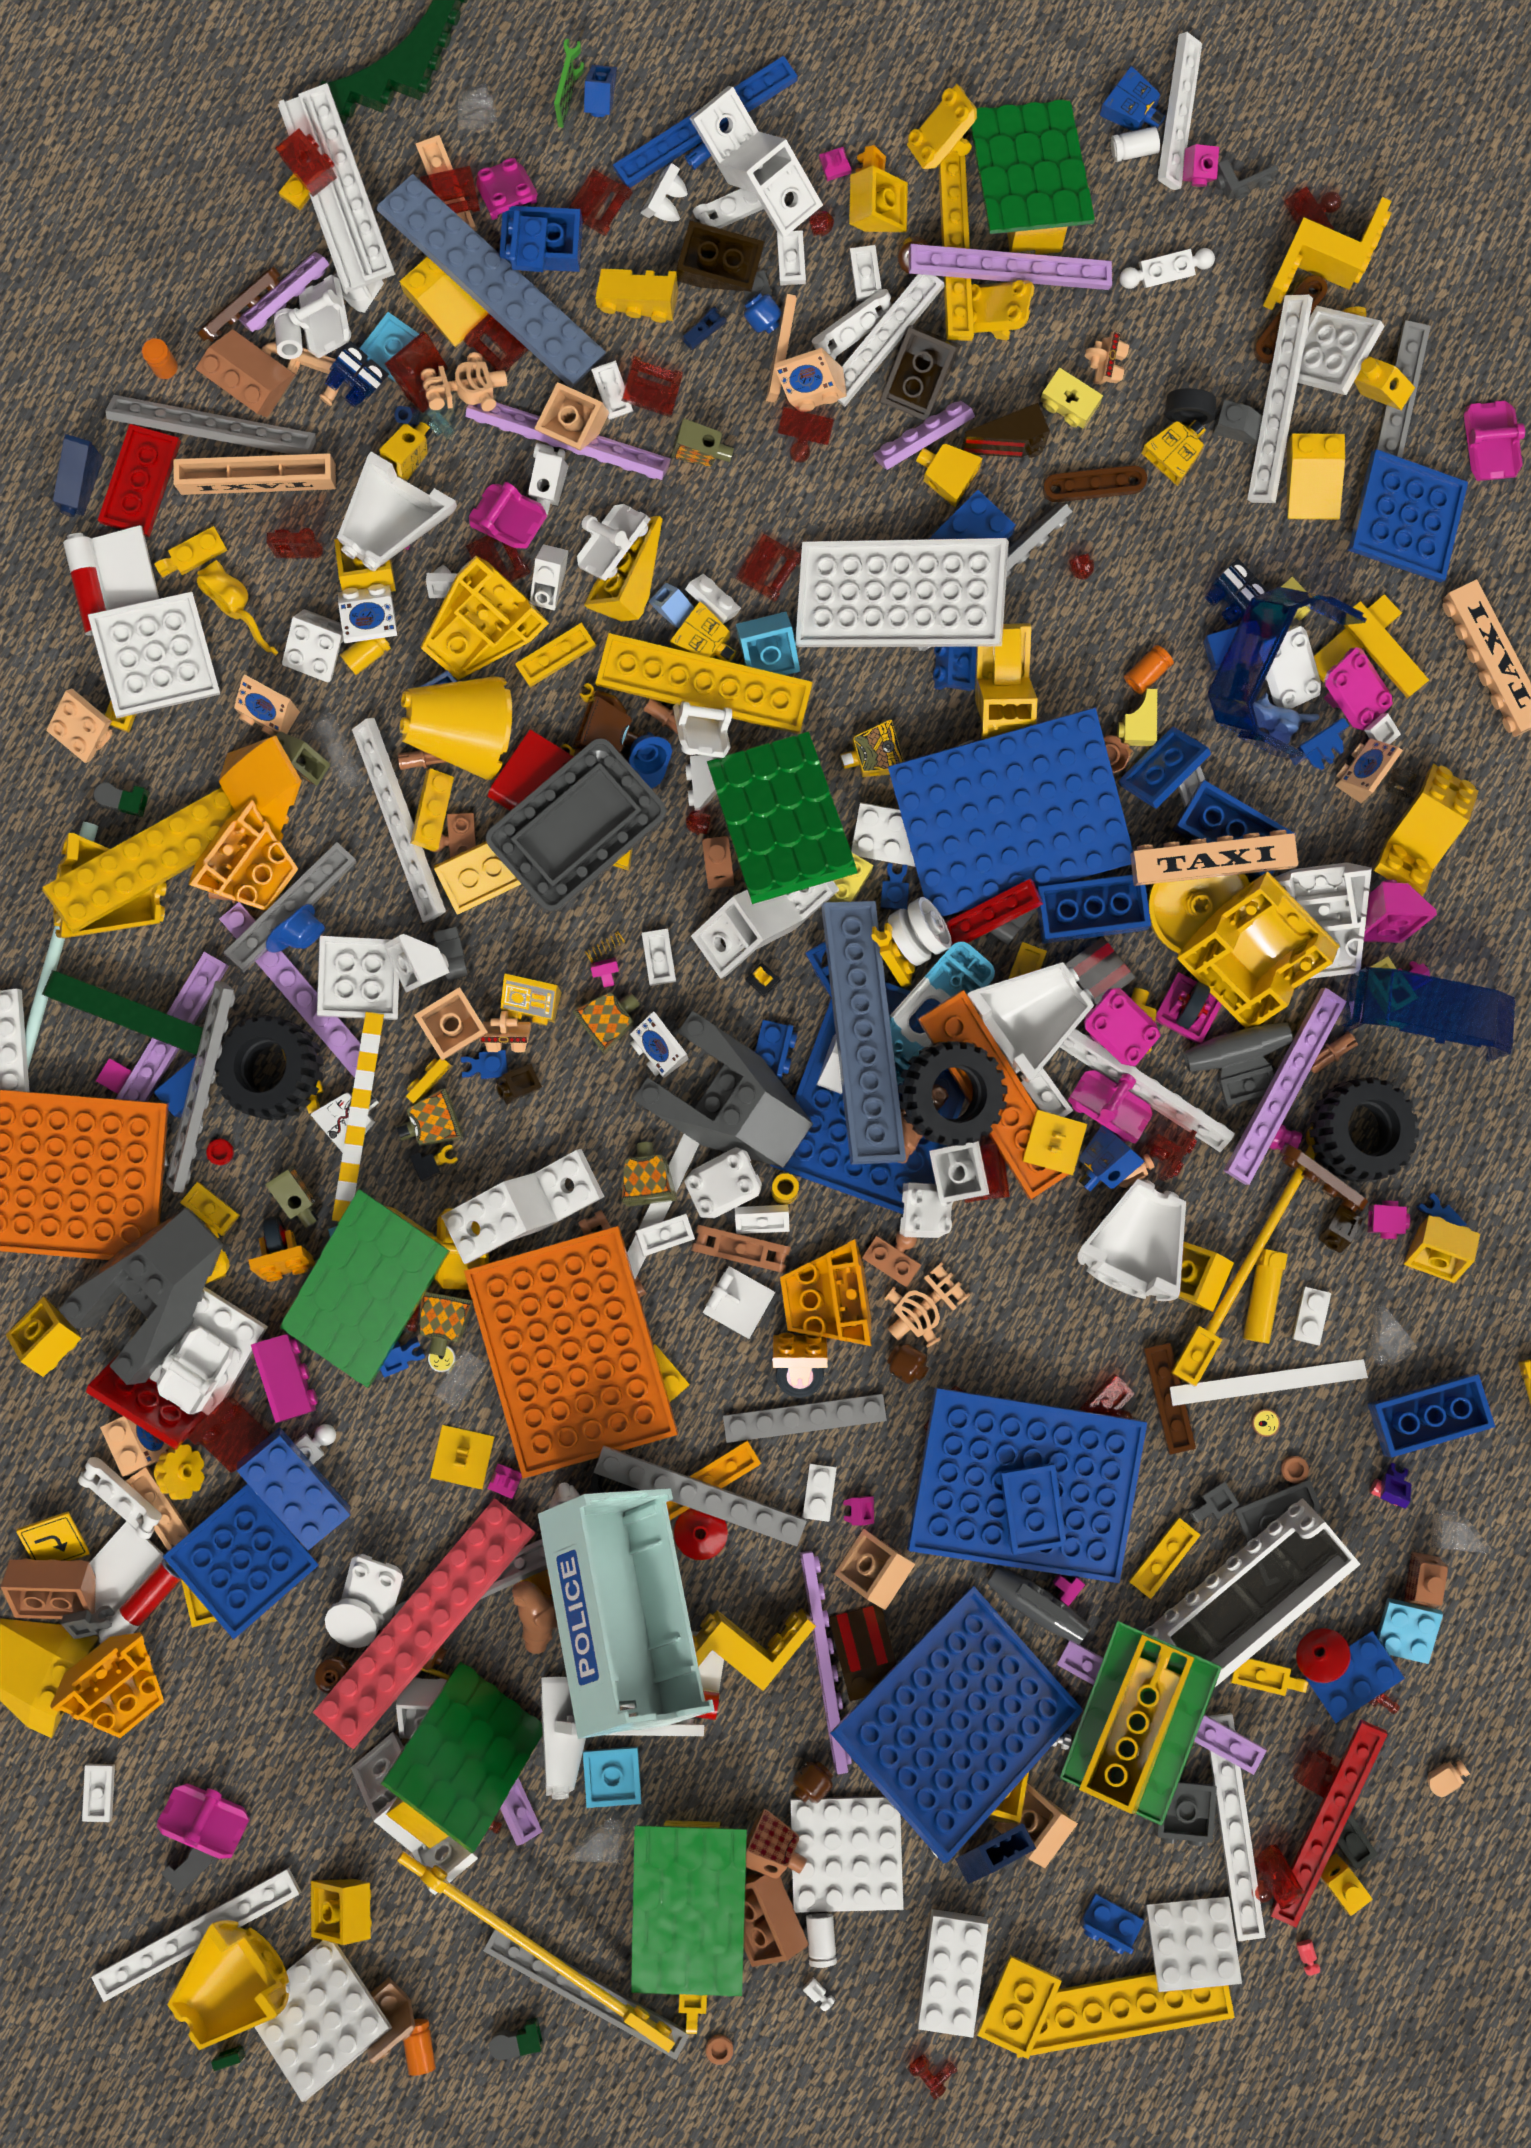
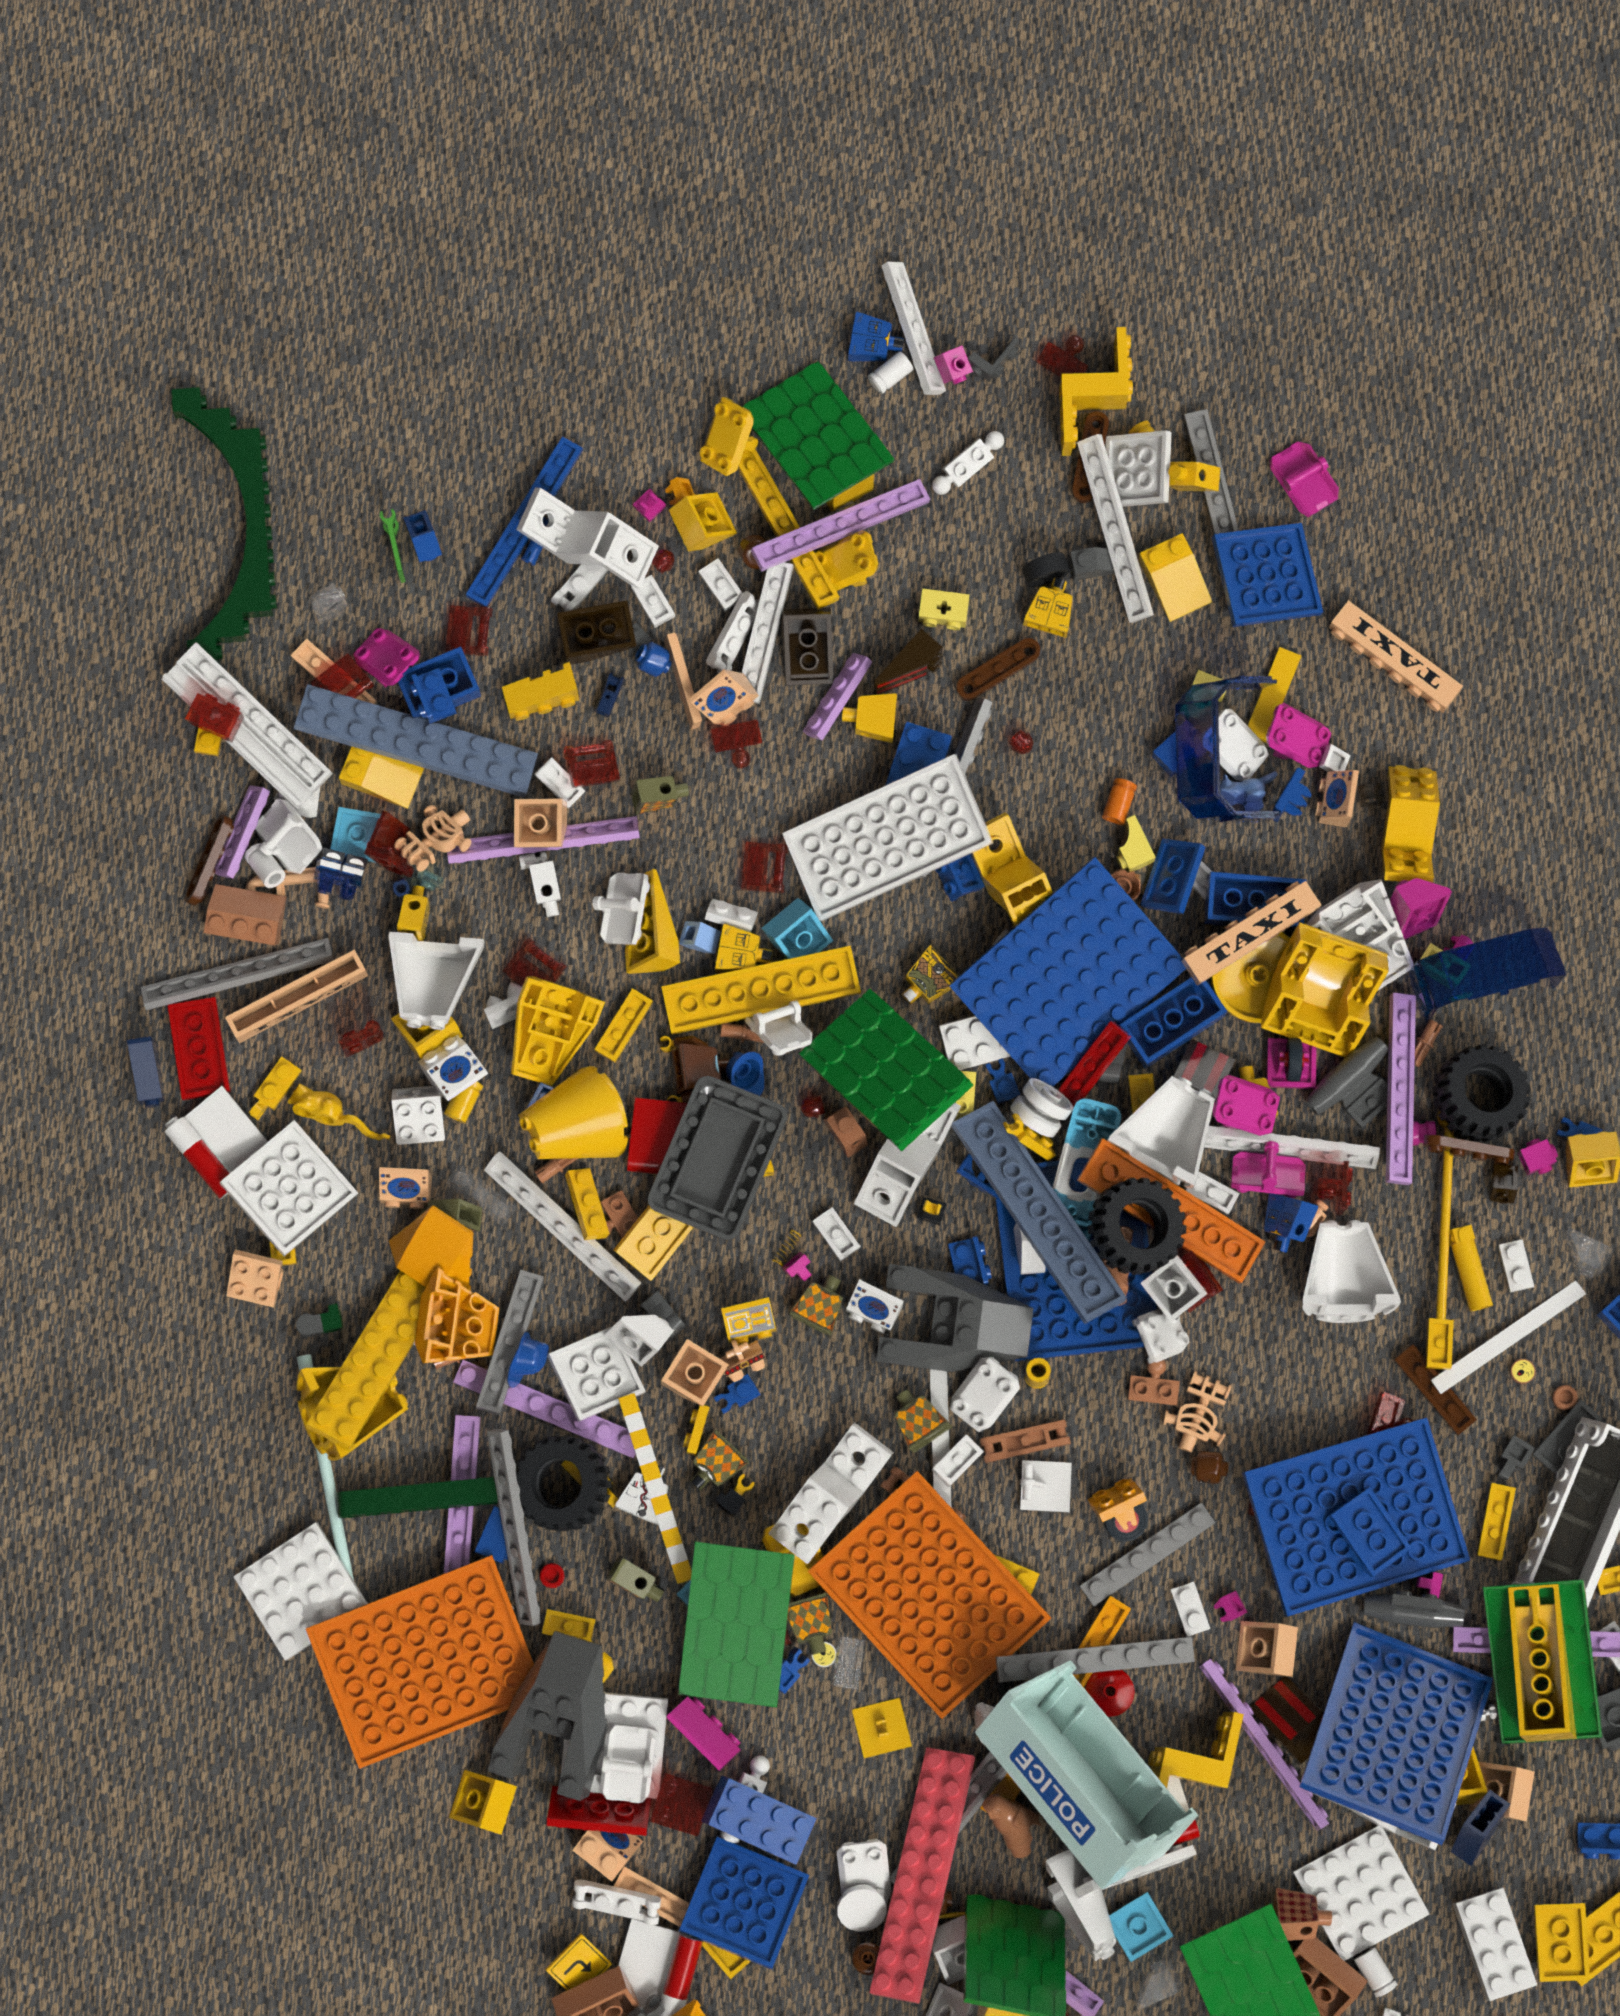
camera: 30 degrees left, 5 degrees down
(113, 1076) = (431, 1556): dark pink tile -> none
(159, 358) = (167, 938): orange piece -> none
(179, 1472) = (655, 1855): yellow plant -> none
(279, 1253) = (651, 1637): light orange plate -> none
(501, 338) = (443, 783): clear red plate -> none
(505, 1481) = (927, 1729): dark pink tile -> none
(508, 515) = (527, 929): dark pink shield -> none
(517, 1084) = (772, 1396): dark brown bracket -> none
(548, 576) = (585, 963): white slope -> none
(658, 203) = (517, 607): white tile -> none
(702, 782) = (799, 1071): white slope -> none
(762, 1219) = (1030, 1408): white plate -> none
(812, 1782) = (1304, 1847): reddish brown head -> none
(829, 1297) = (1118, 1444): light orange wedge -> none
(1008, 658) = (1002, 850): yellow slope -> none
(1054, 1142) = (1237, 1226): yellow piece -> none
(1104, 356) = (954, 561): light nougat hips -> none
(1203, 1276) = (1412, 1276): yellow slope -> none
(1229, 584) = (1149, 703): clear blue hips -> none
(1387, 653) = (1305, 694): yellow tile -> none

